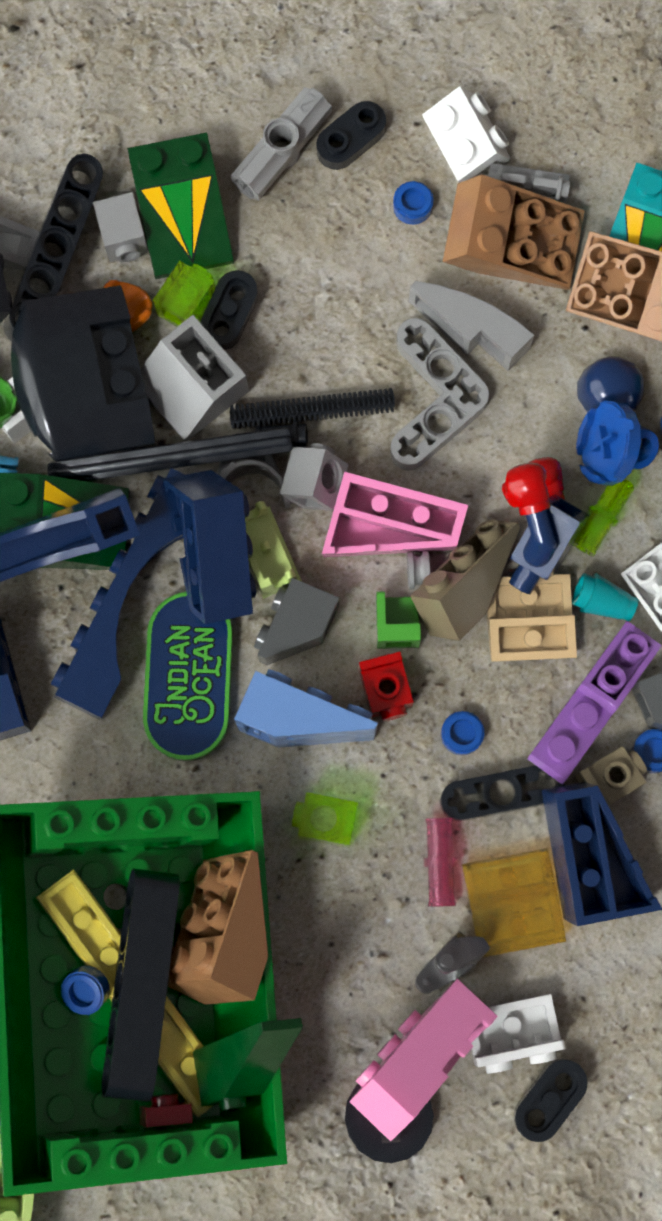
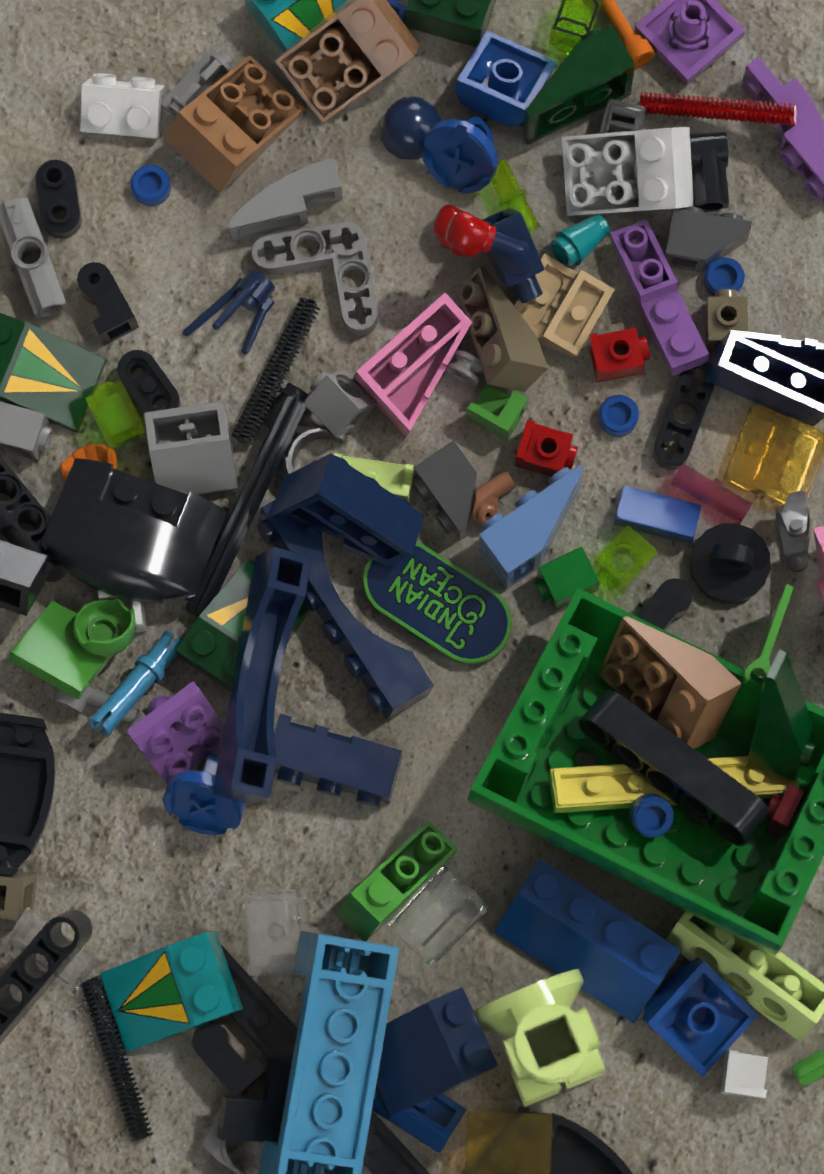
camera: 55 degrees left, 0 degrees up
(276, 777) = (563, 576): none -> green brick
(282, 231) = (102, 291): none -> black leg
(286, 1009) = (761, 665): none -> bright green flag
(309, 883) = (667, 603): none -> black leg
(312, 661) = (487, 497): none -> nougat arm
(368, 341) = (248, 292): none -> dark blue plant
(386, 919) = (730, 563): none -> black tile
(391, 824) = (657, 514): none -> blue slope
(500, 696) = (608, 364): none -> red brick

